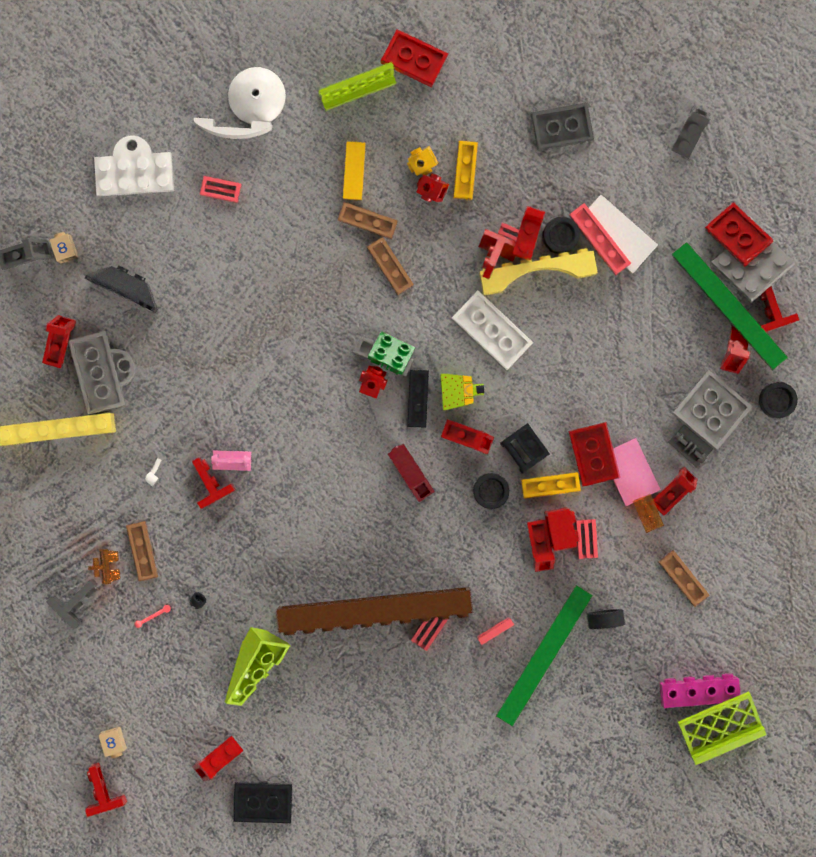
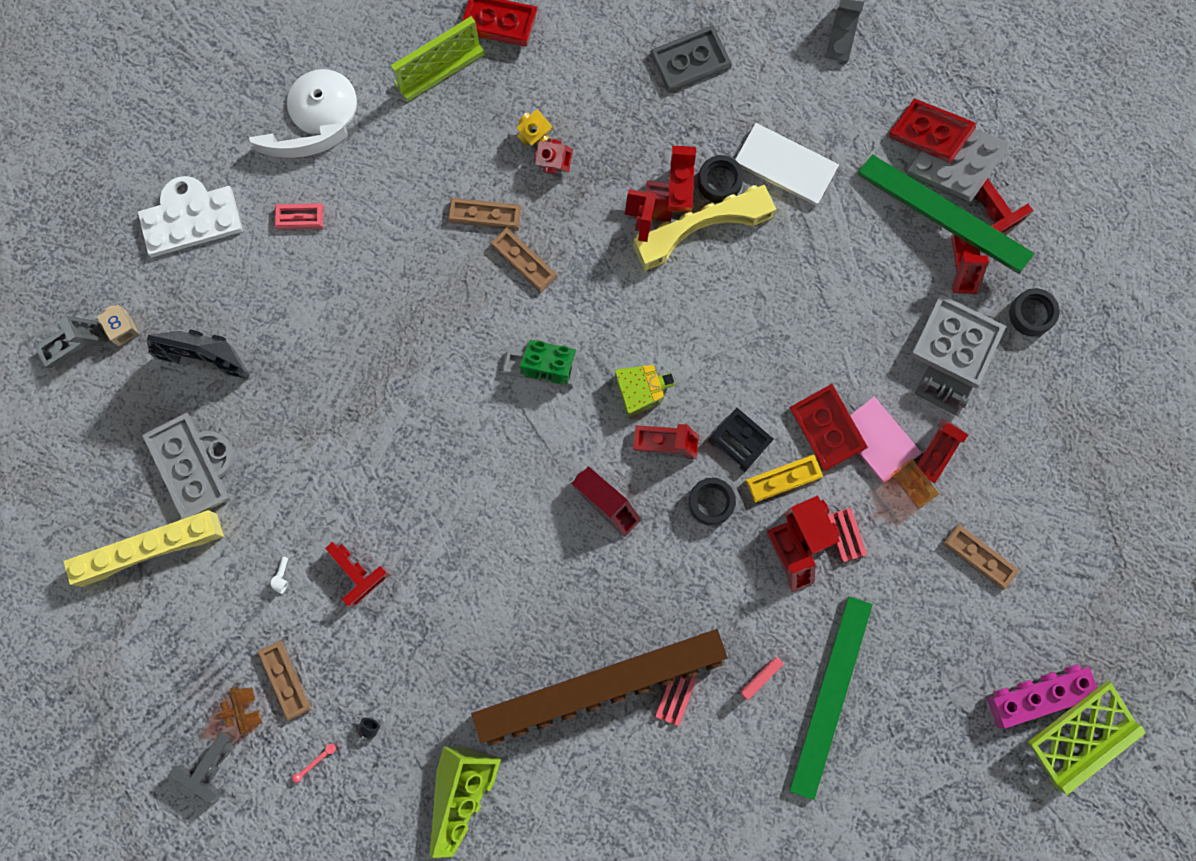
camera: 10 degrees left, 10 degrees down
(57, 340) = (128, 437): red bracket -> none
(231, 460) = (376, 538): bright pink hinge -> none
(354, 170) = (456, 160): yellow tile -> none
(372, 381) = (532, 399): red brick -> none
(418, 398) = (593, 410): black tile -> none
(465, 170) = (588, 131): yellow tile -> none
(492, 330) = (665, 308): white tile -> none
(599, 239) = (769, 172): coral tile -> none
(606, 619) = (898, 629): black tyre -> none

